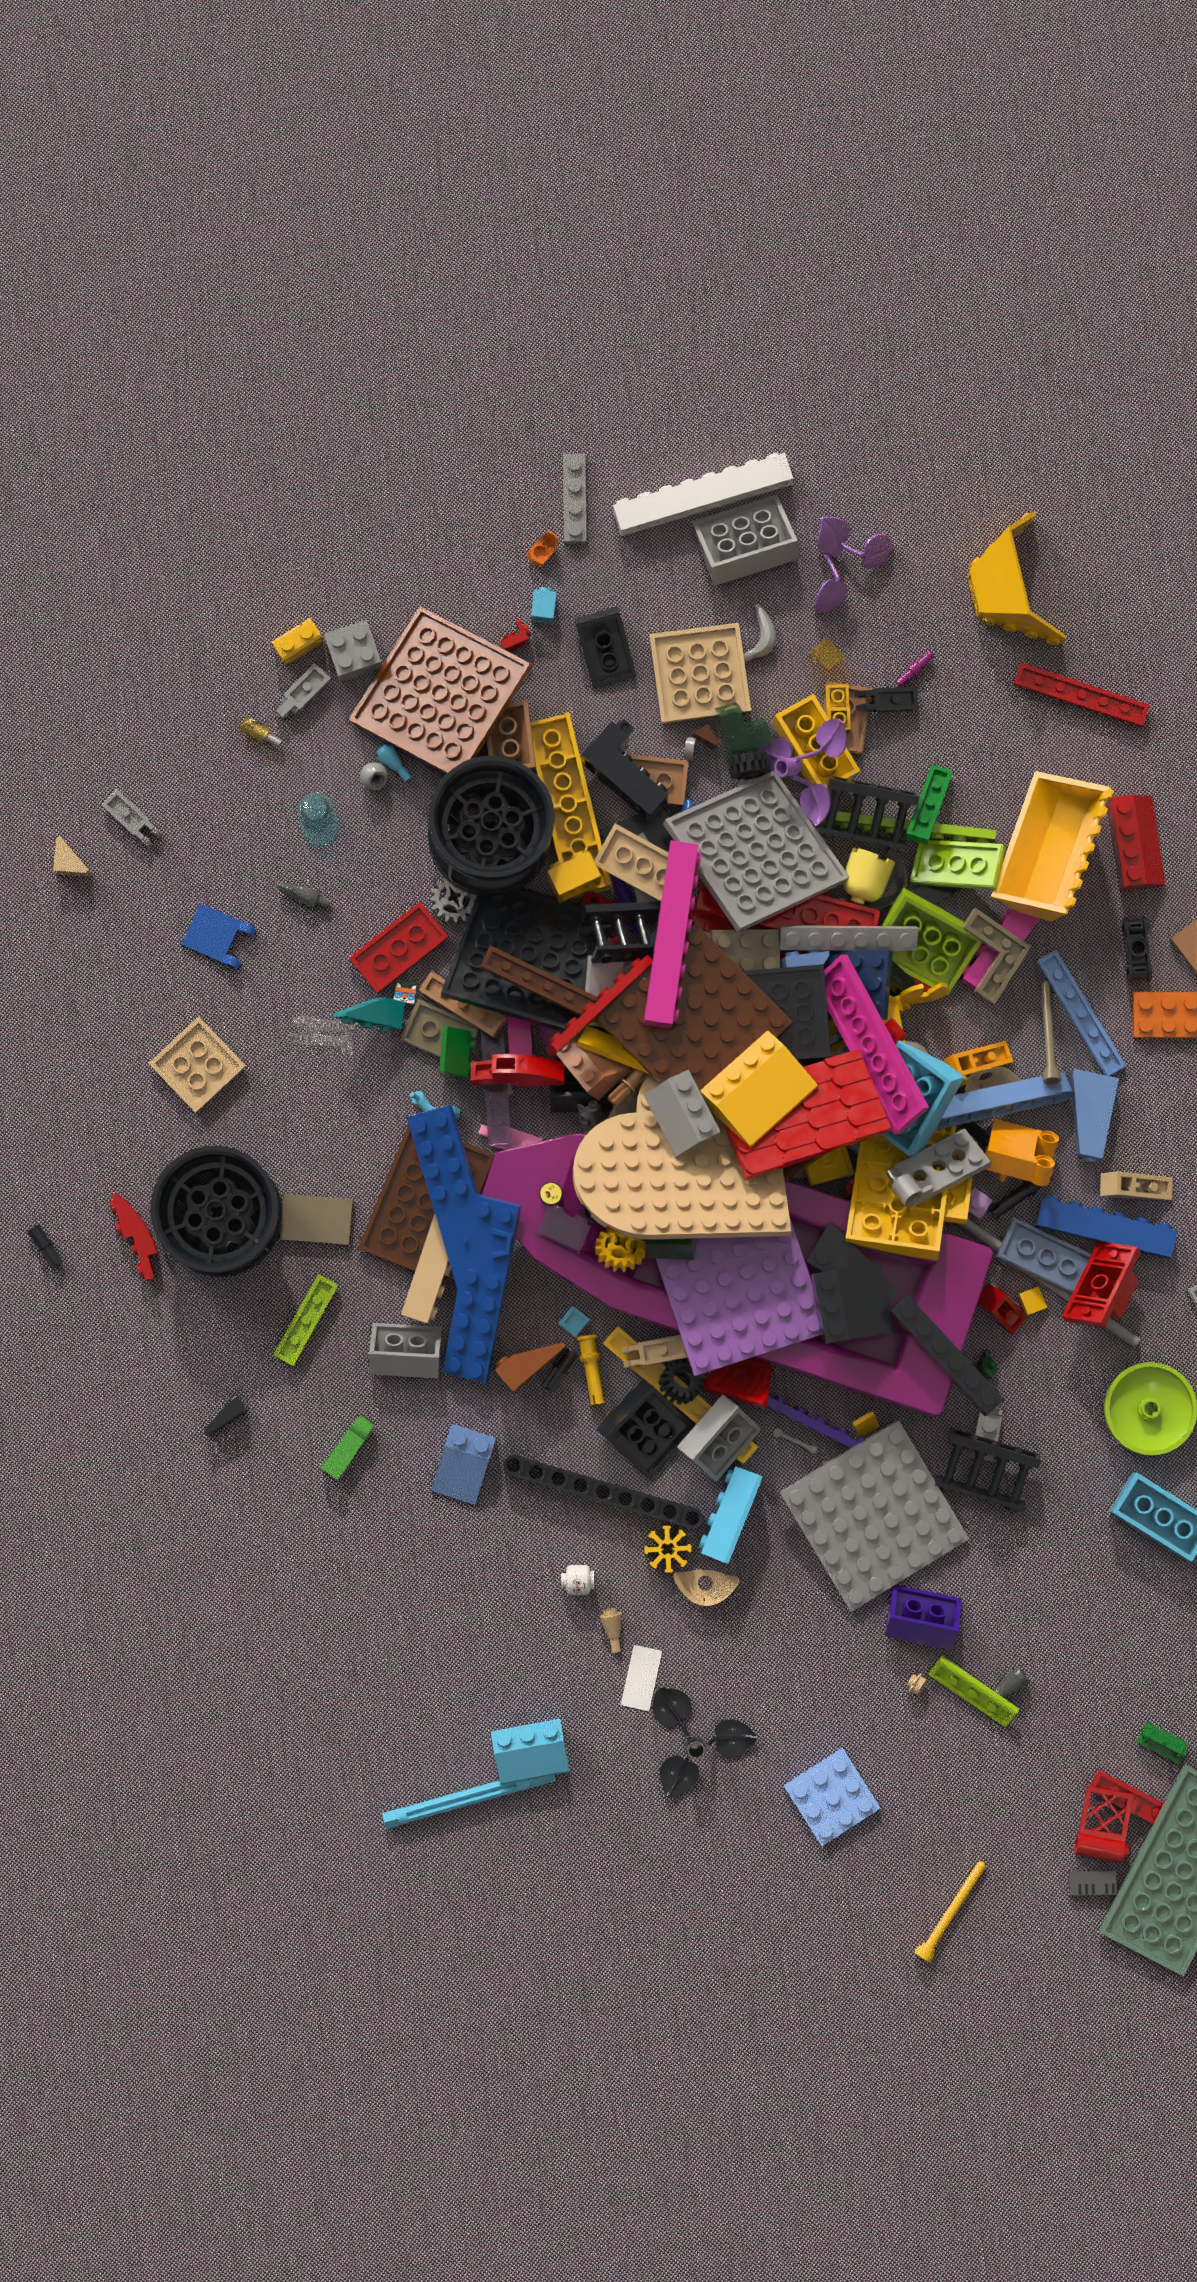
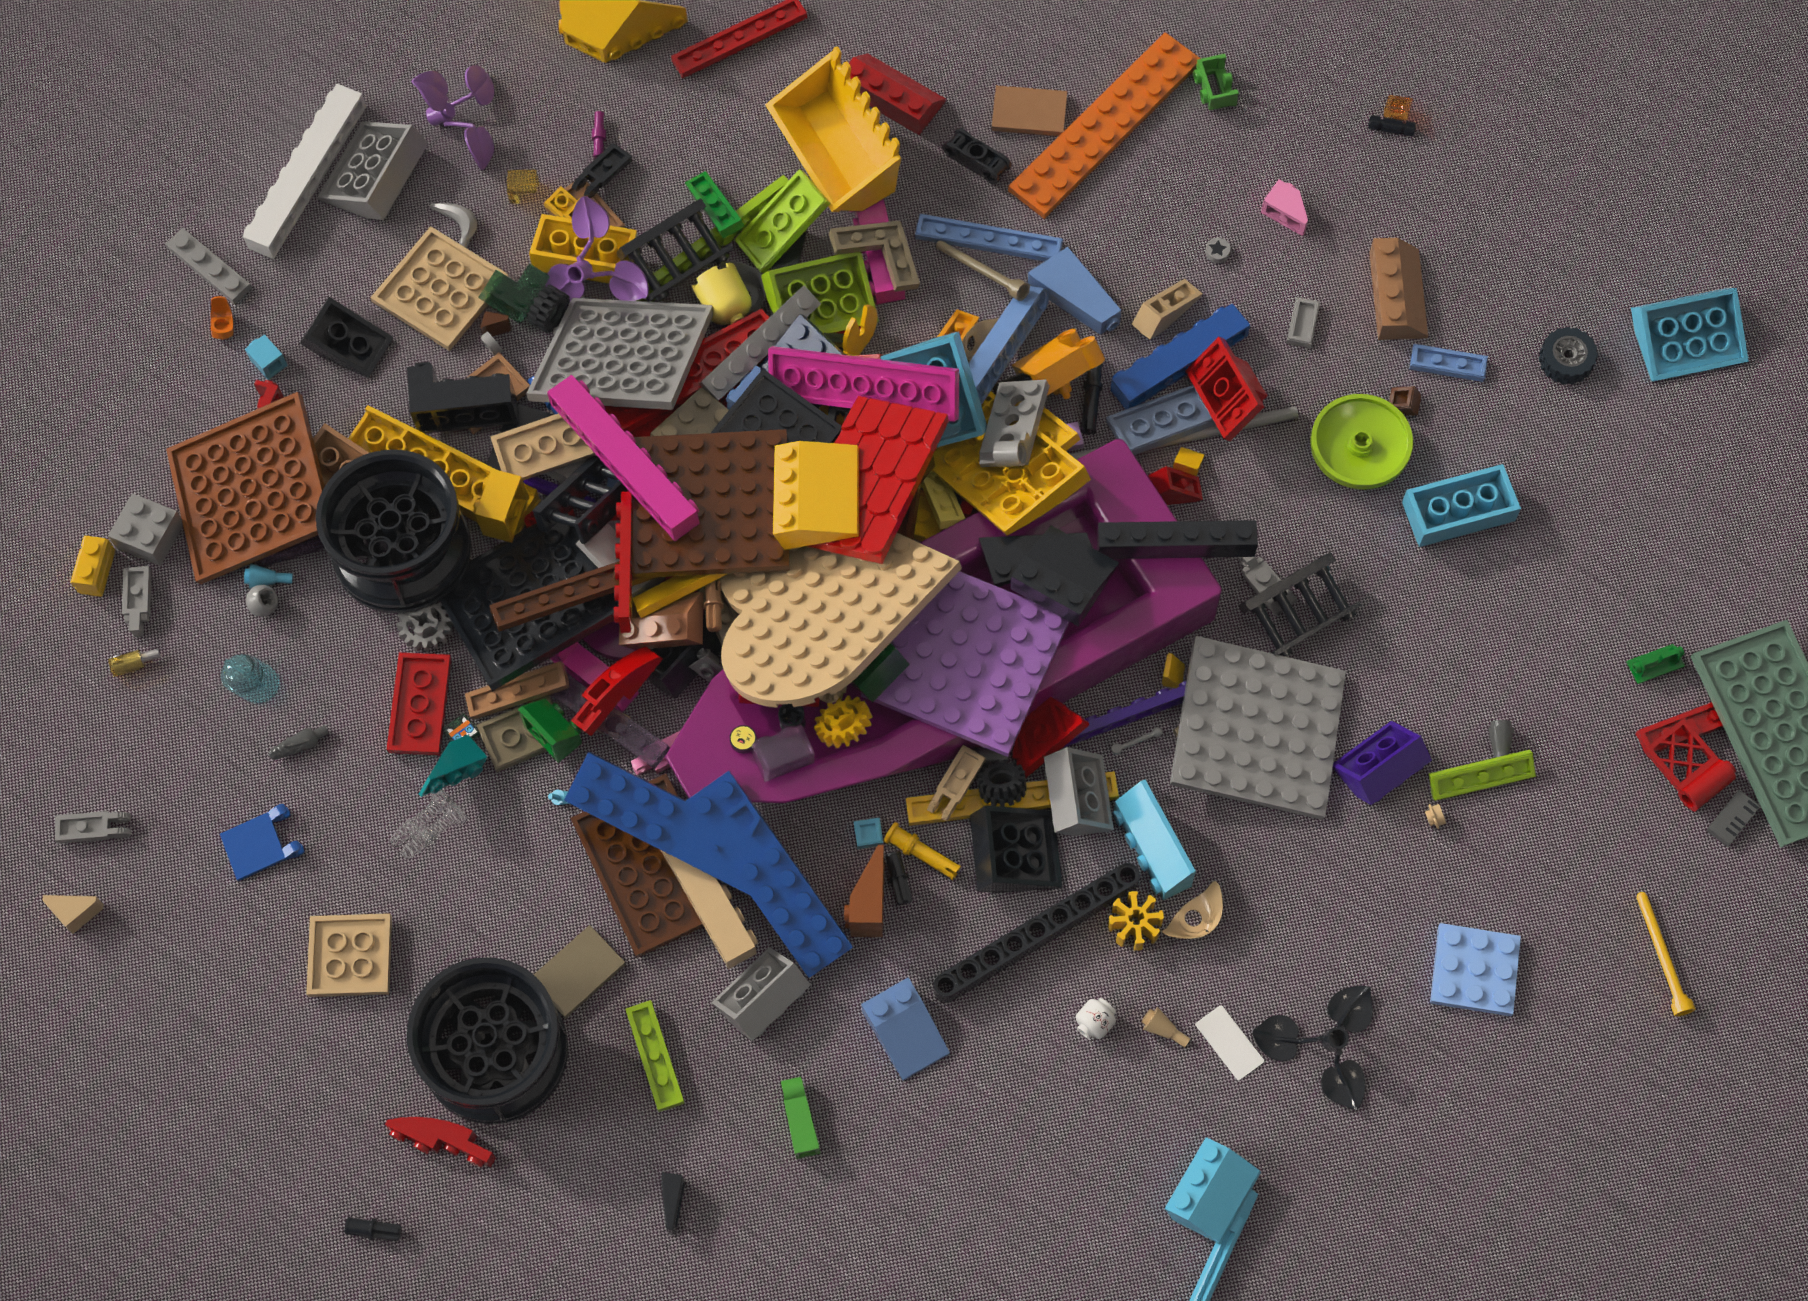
camera: 40 degrees left, 15 degrees down
(682, 1113) = (778, 566): light grey slope -> none
(841, 1170) = (942, 501): none -> light yellow plate

